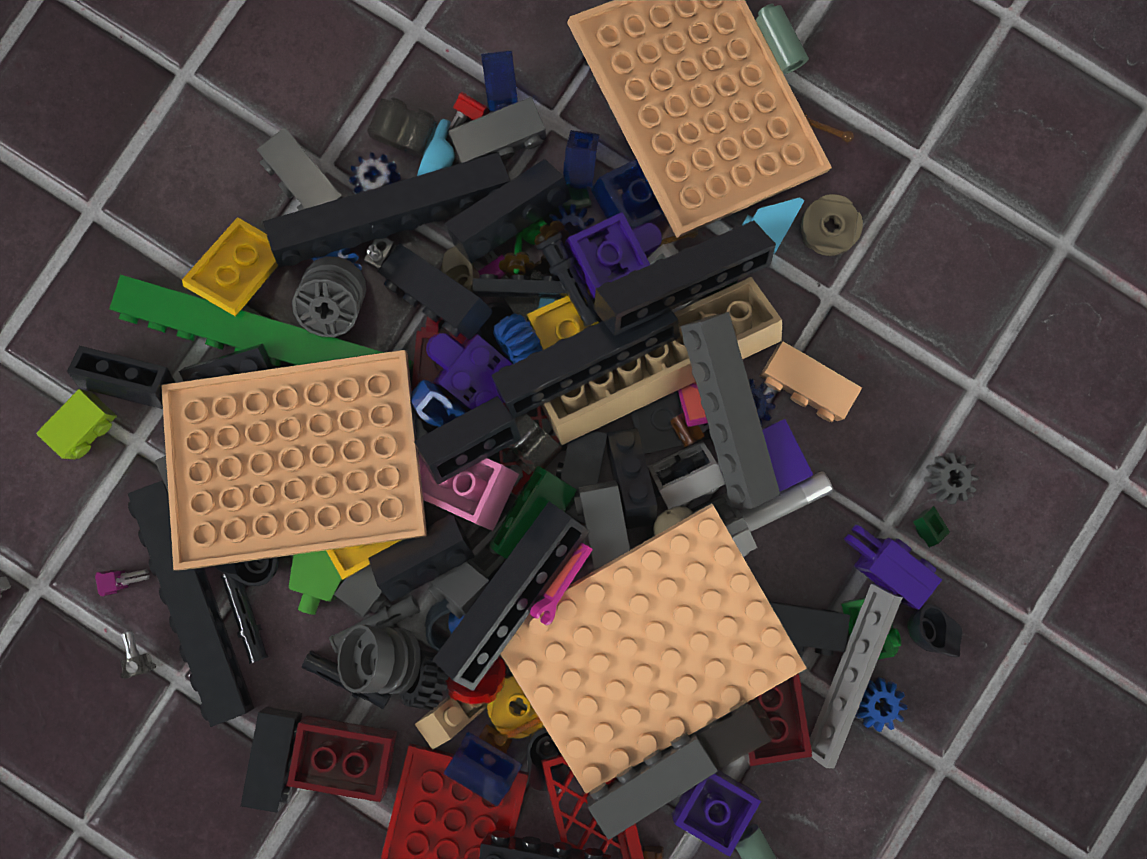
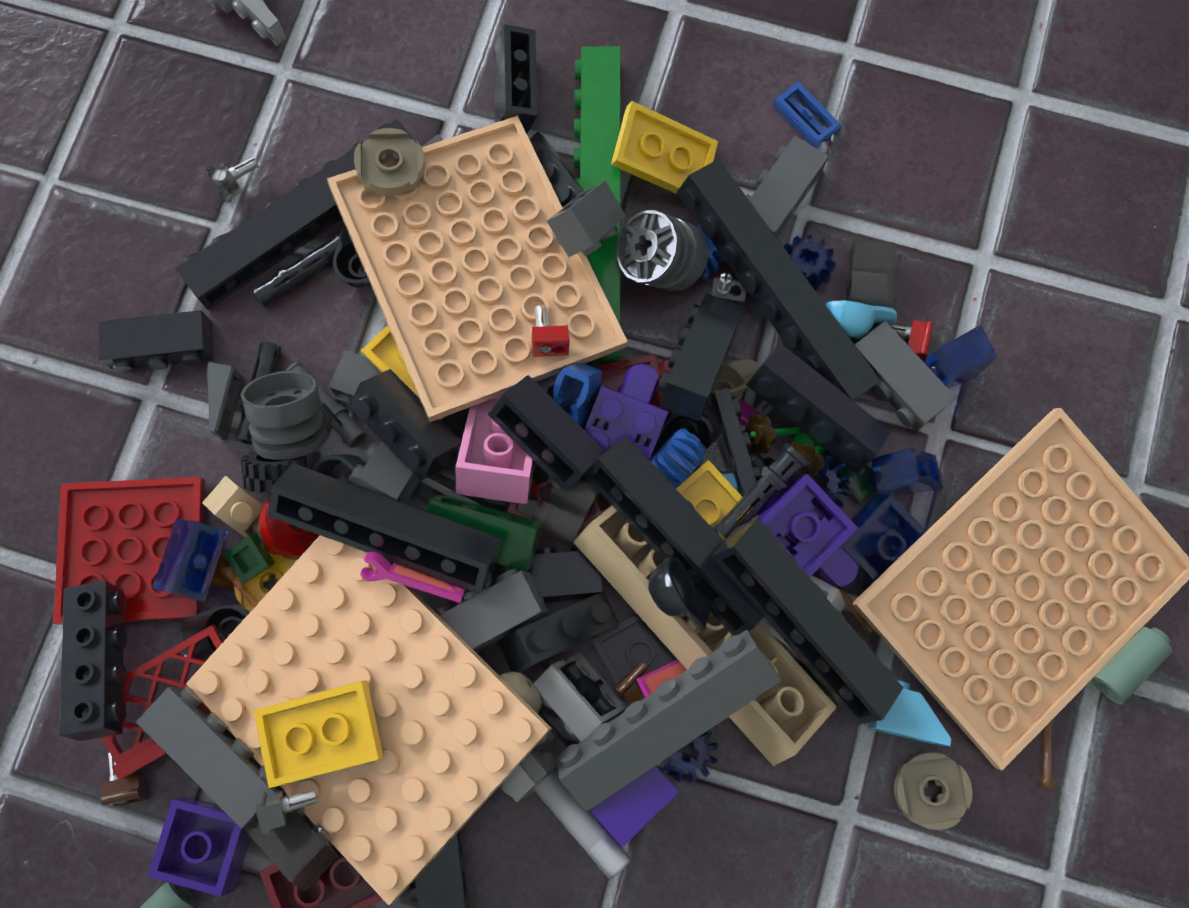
camera: 80 degrees right, 10 degrees down
(77, 425) = (455, 54): lime brick -> none
(109, 581) = (304, 132): magenta piece -> none
(167, 494) = (389, 180): none -> dark tan plate
(241, 142) = (803, 119): none -> blue tile
(285, 351) = (587, 220): none -> dark grey brick
(315, 578) = (356, 325): bright green torso -> none
(338, 710) = (223, 393): none -> dark grey slope
(342, 758) = (169, 411): dark red brick -> none
(385, 416) = (549, 339): none -> red piece
(494, 718) = (249, 558): none -> dark green plate
(634, 372) = (677, 593): none -> black cap
(663, 691) = (318, 734): none -> yellow plate
(710, 740) = (273, 807): none -> dark grey piece
(810, 382) = (734, 818): light nougat brick -> none

